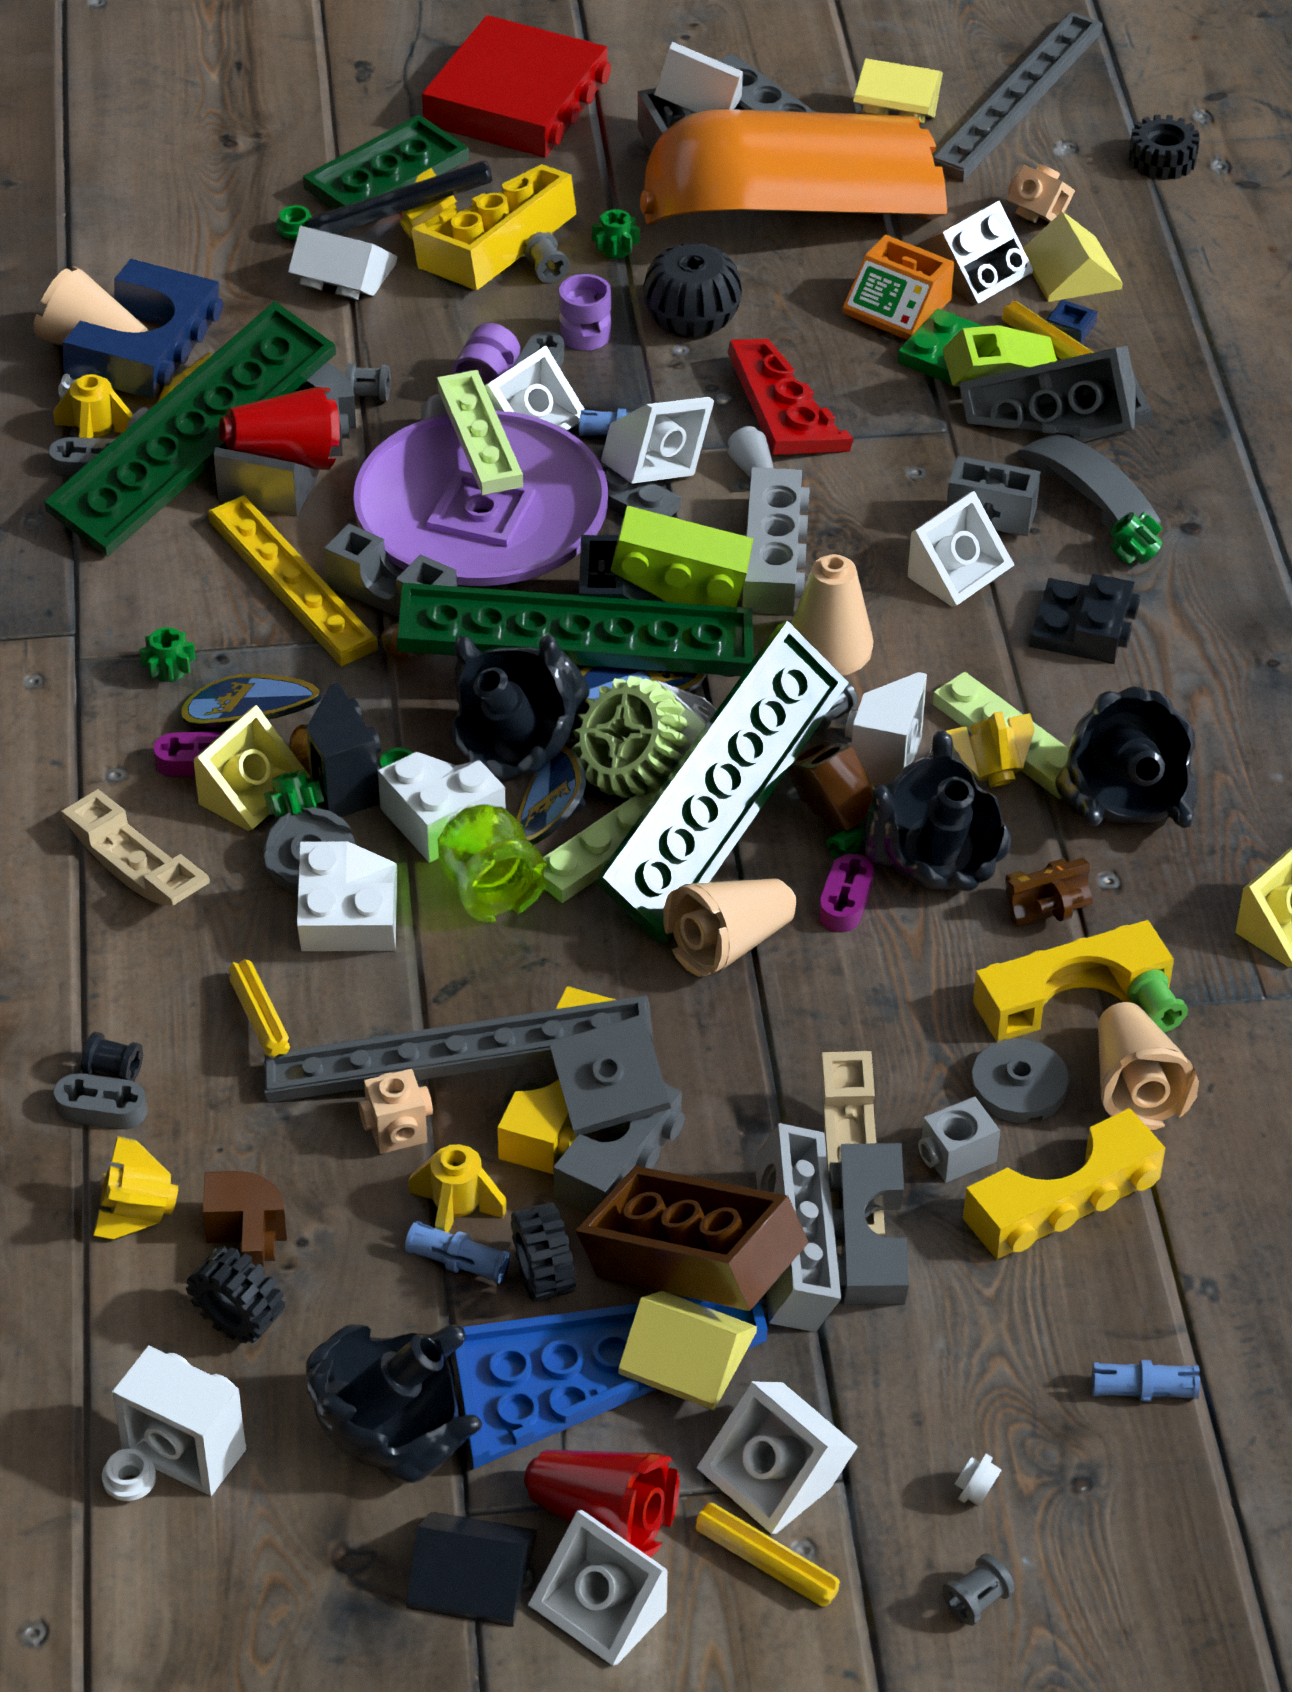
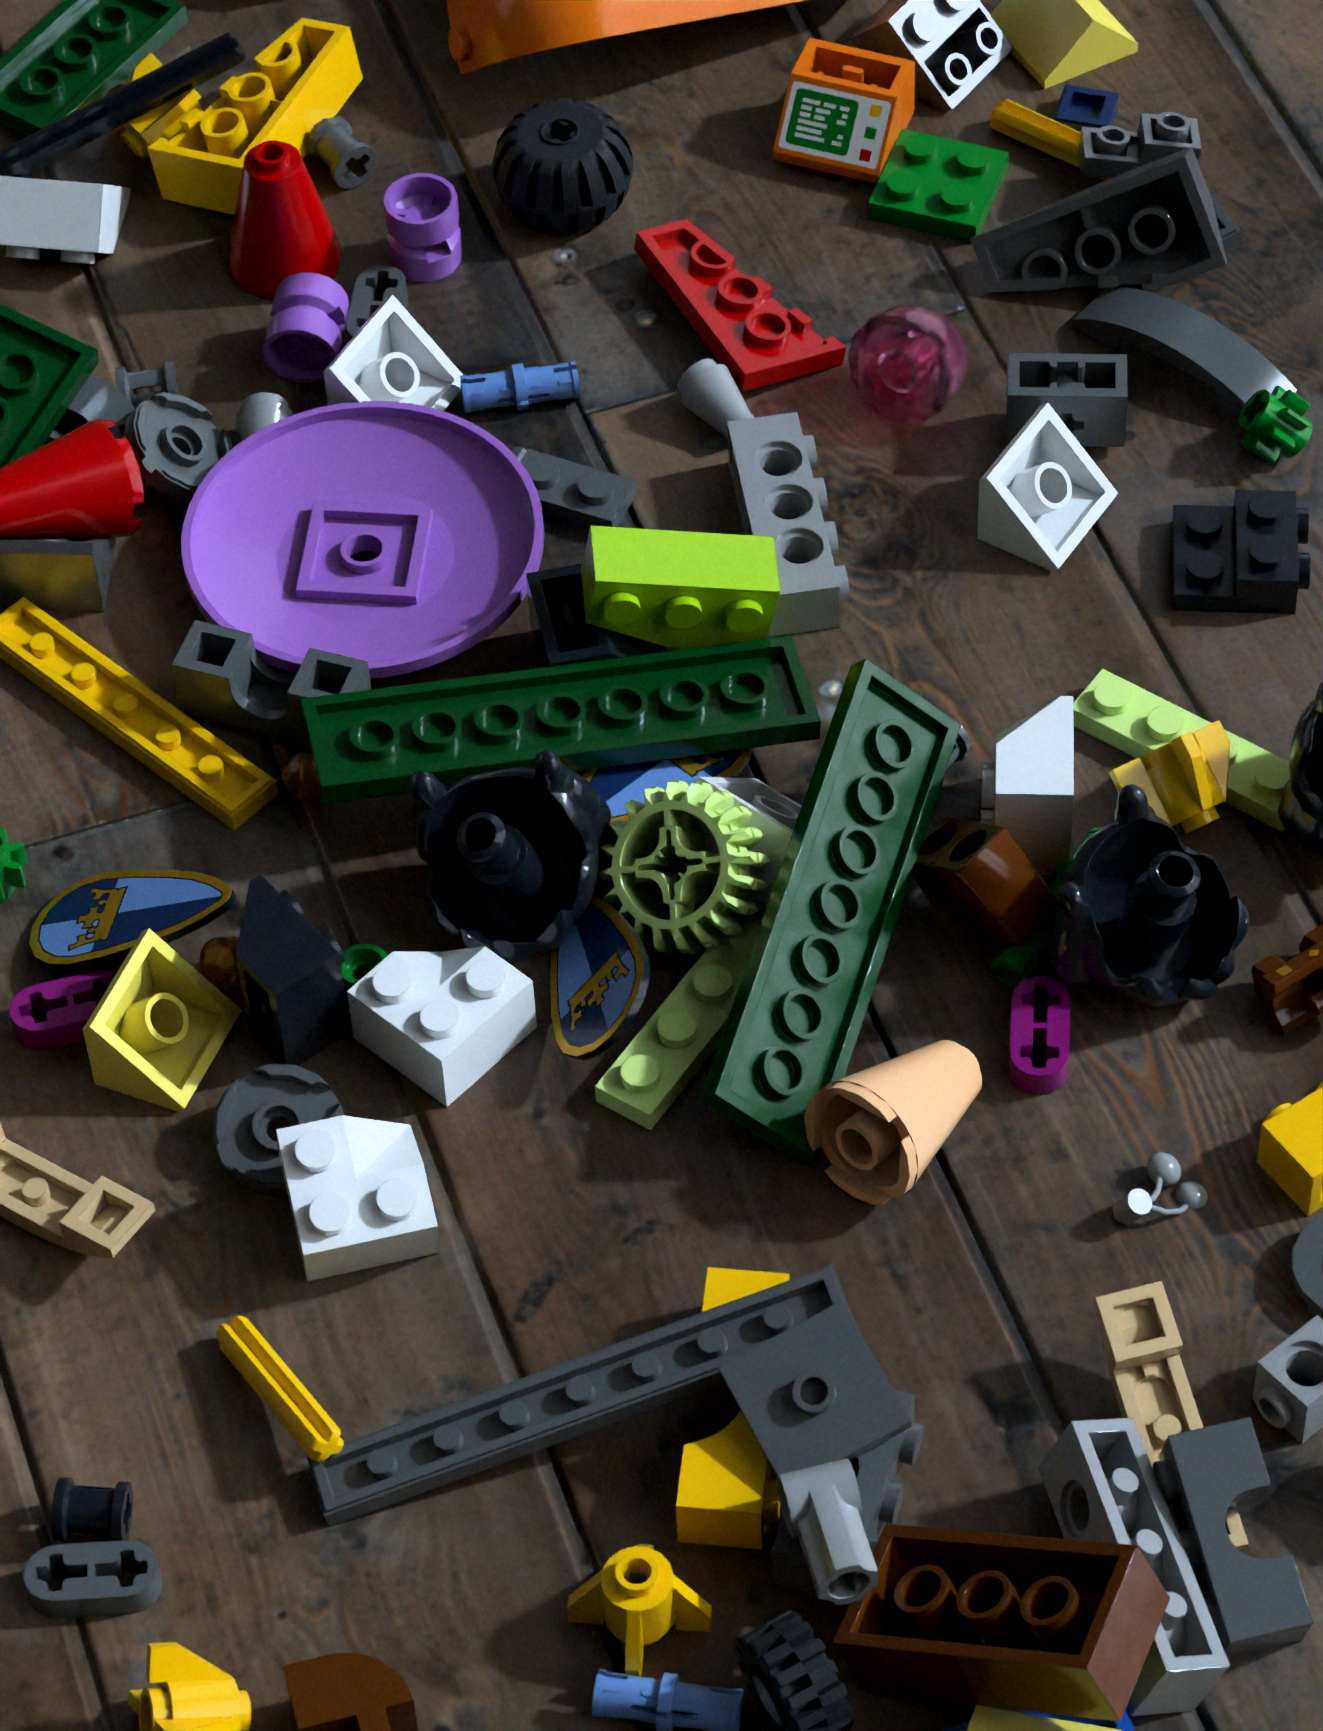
camera: 10 degrees left, 5 degrees up
(293, 793) = (232, 1048): green gear -> none
(371, 414) = (175, 443): none -> dark grey plate
(395, 1110) = (520, 1506): light nougat brick -> none
(480, 432) = (338, 444): yellowish green plate -> none
(487, 288) = (279, 222): none -> red cone
(490, 861) = (542, 1095): clear neon green tile -> none
(593, 1155) = (826, 1514): none -> light grey piece
(615, 234) = (428, 99): green gear -> none
(658, 440) = (587, 409): white slope -> none
(835, 615) = (907, 624): light nougat cone -> none
(891, 453) = (909, 362): none -> clear pink cylinder
(905, 994) = (1164, 1172): none -> light grey piece
(993, 351) = (1008, 187): lime slope -> none
(1078, 341) = (1114, 151): none -> flat silver slope

